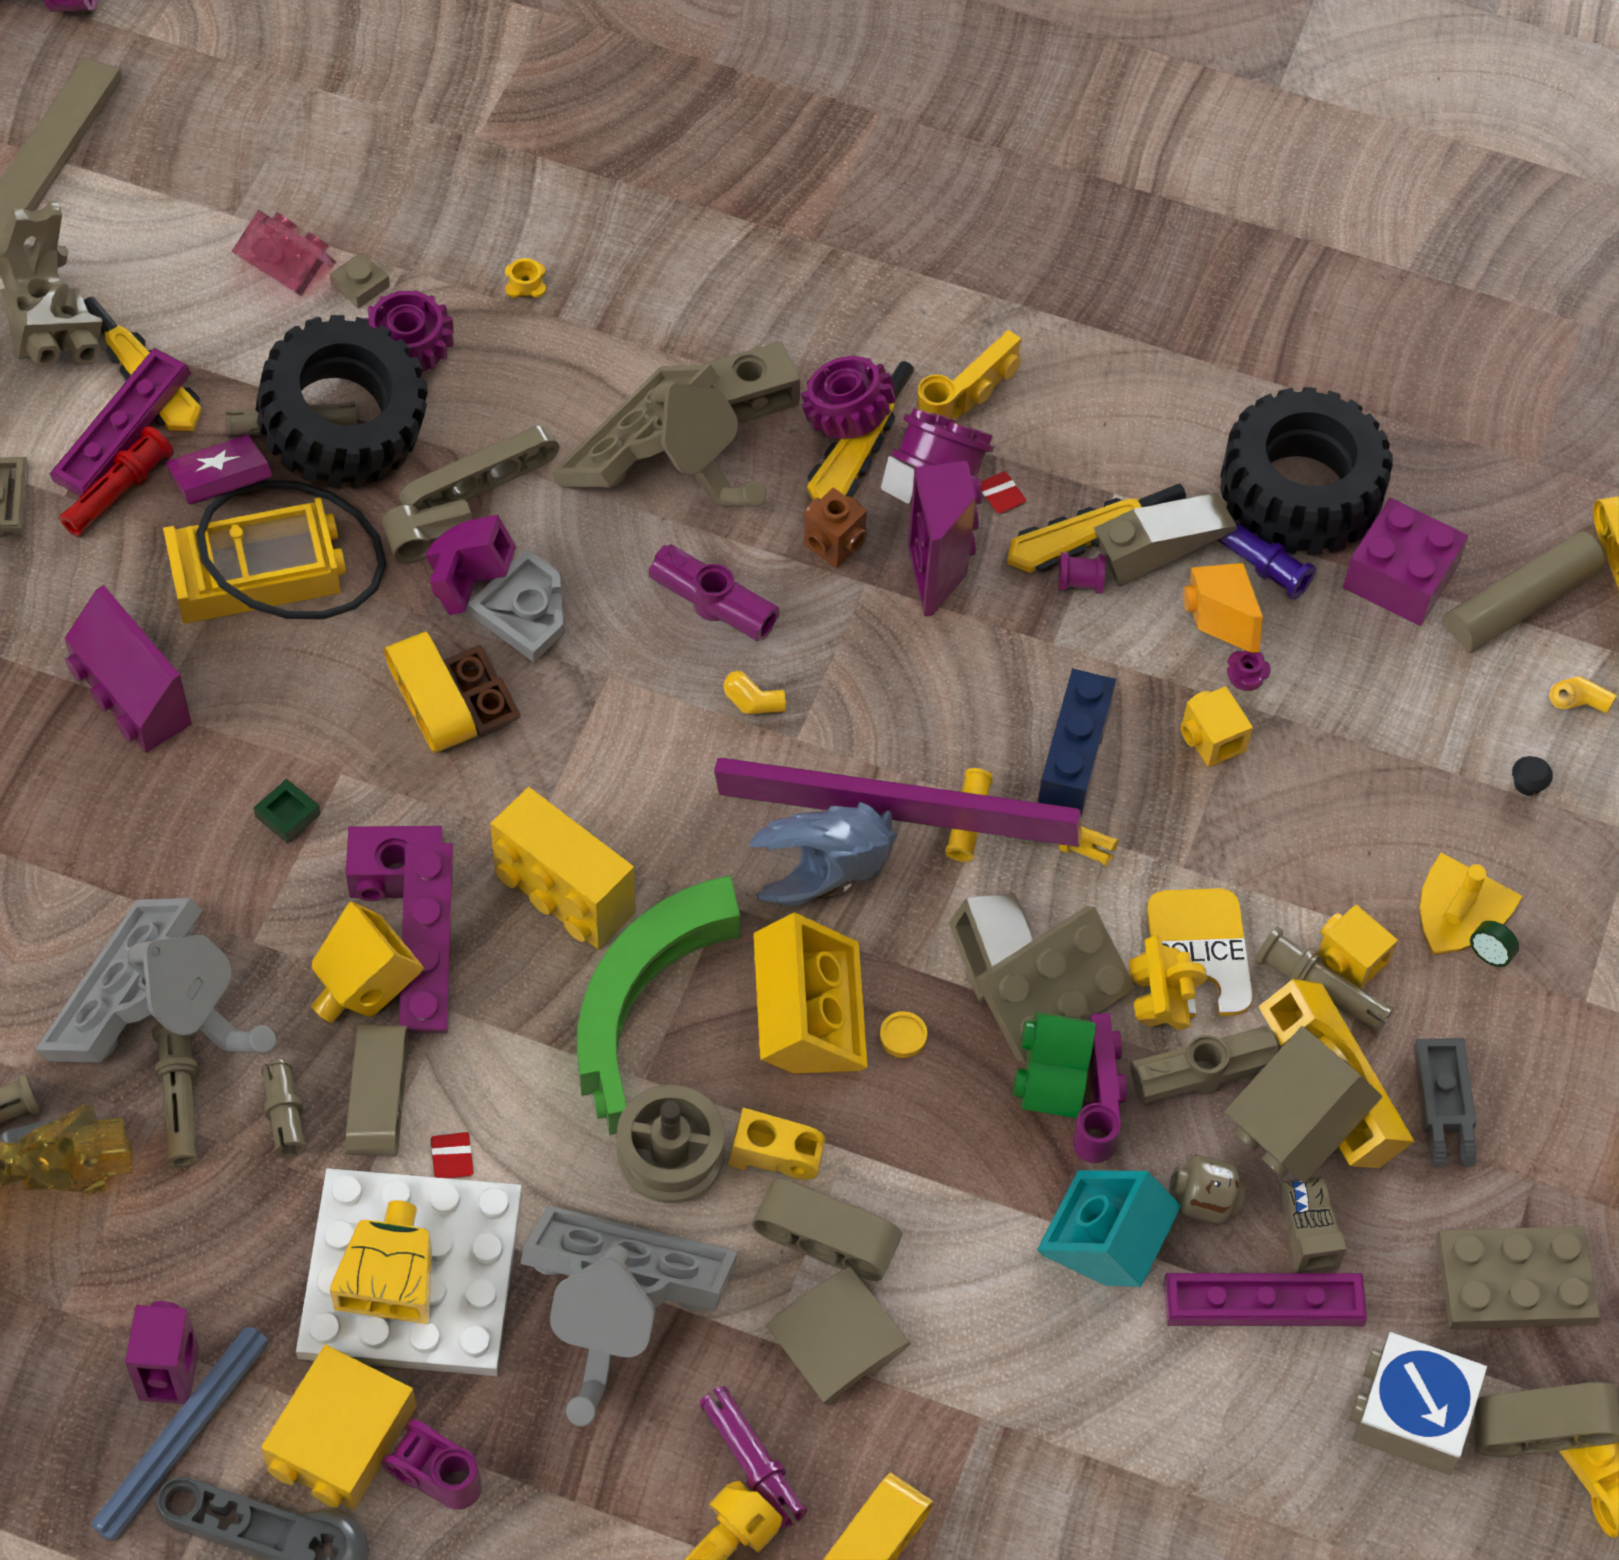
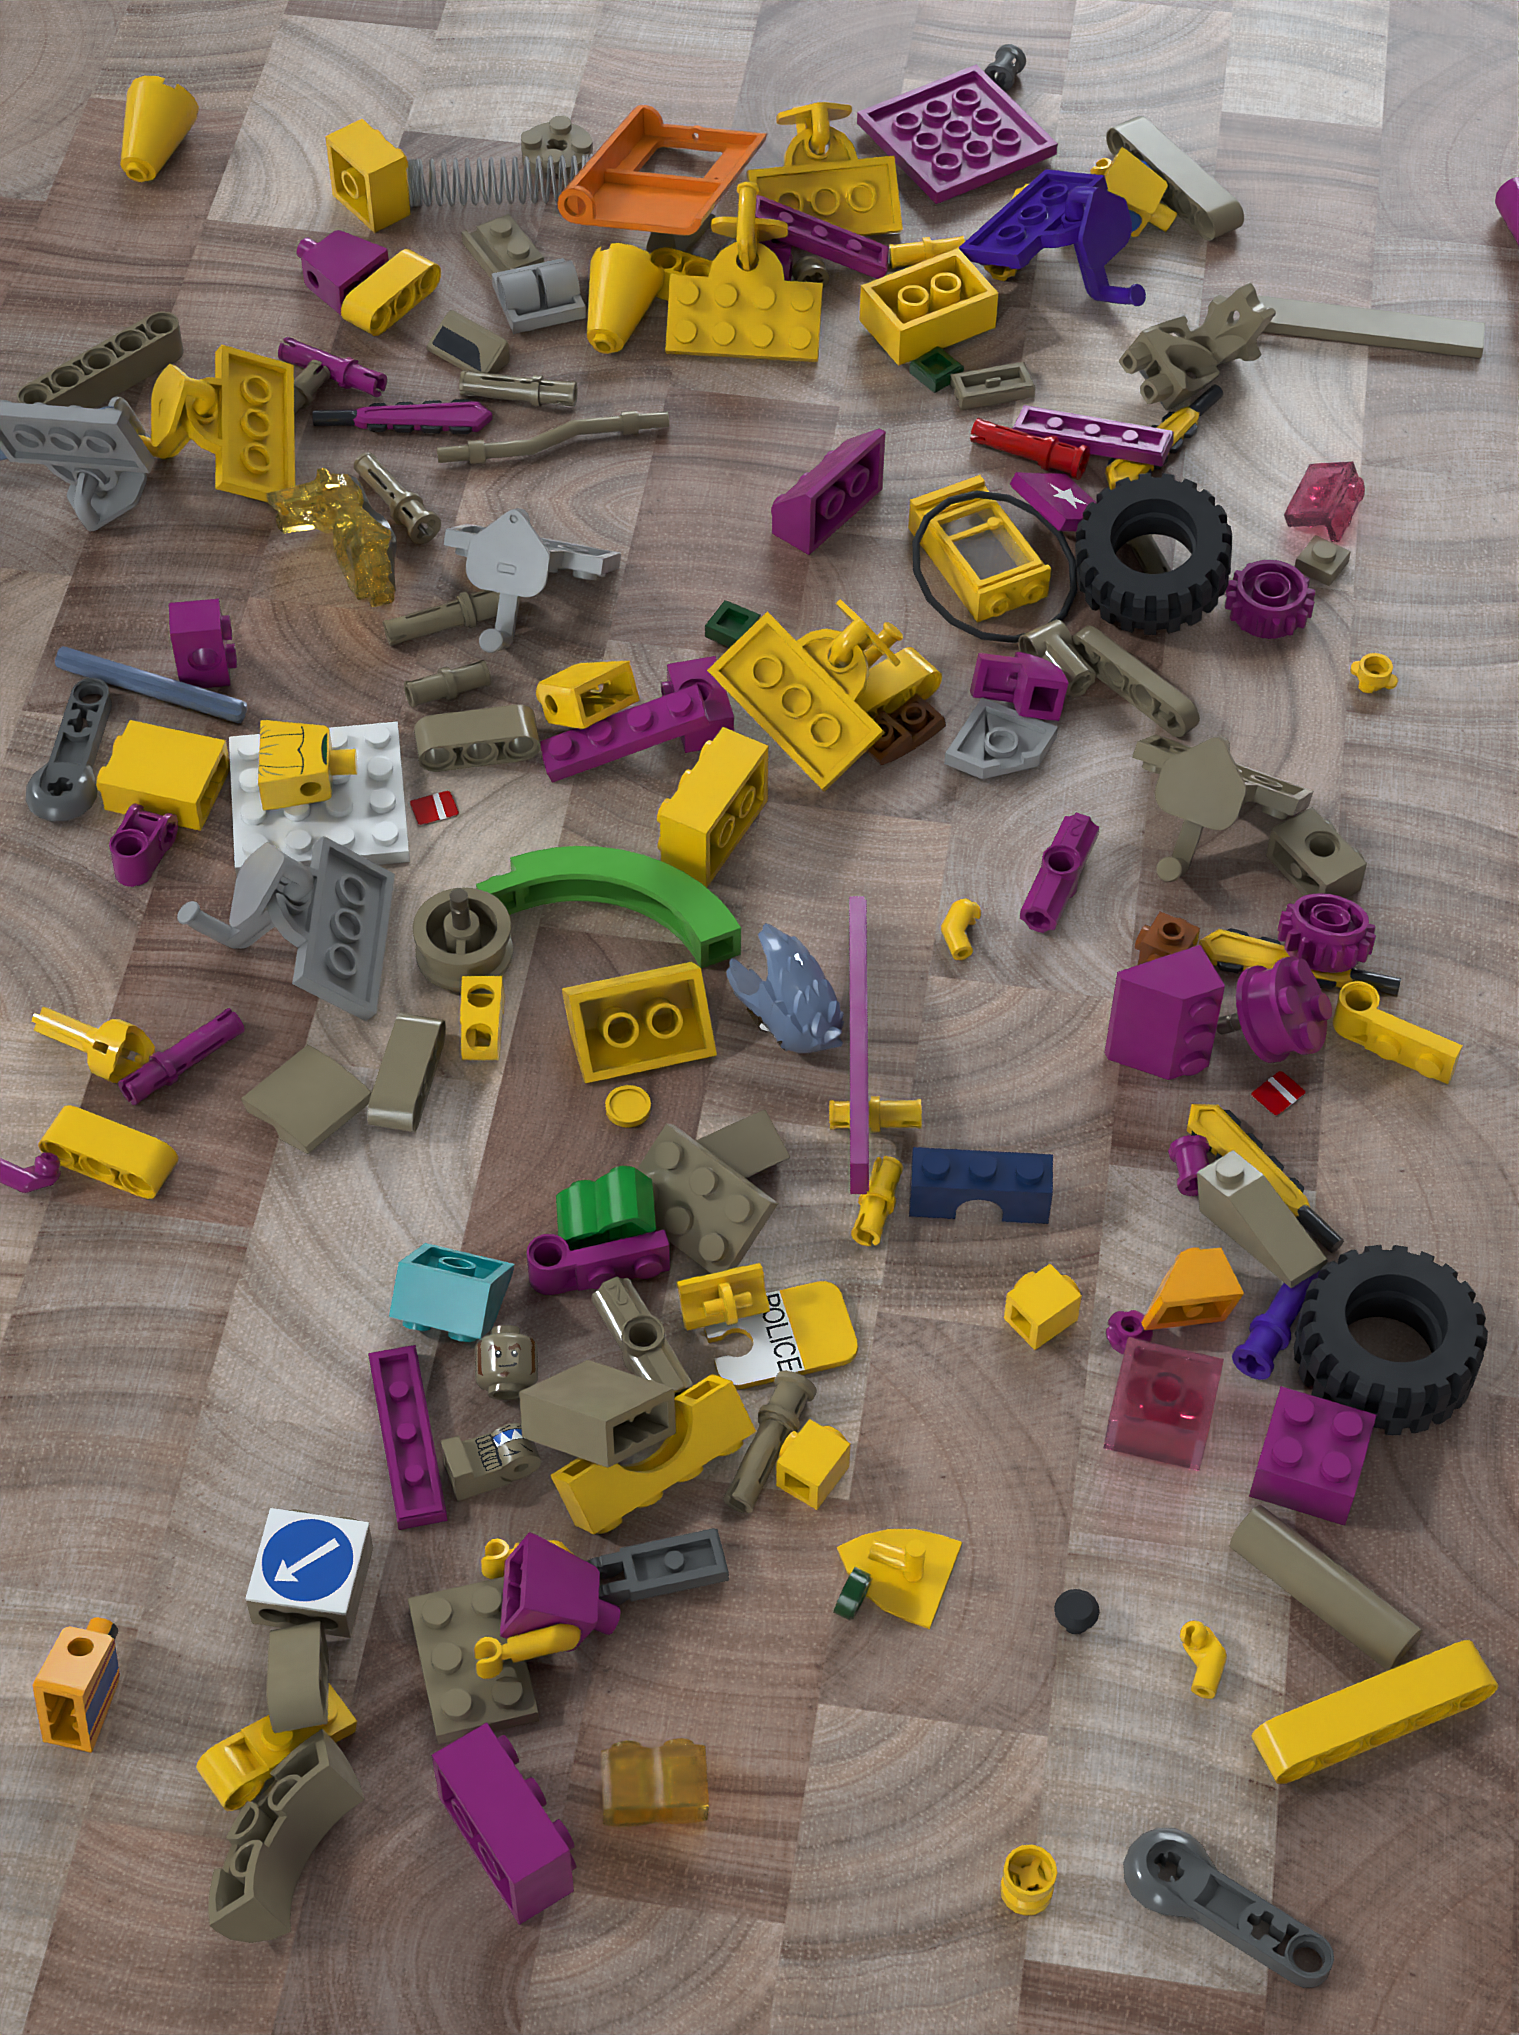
camera: 80 degrees right, 5 degrees down
(435, 741) = (809, 689): none -> yellow plate
(1343, 654) = (1163, 1403): none -> clear pink brick
(1486, 1189) = (546, 1602): none -> magenta torso

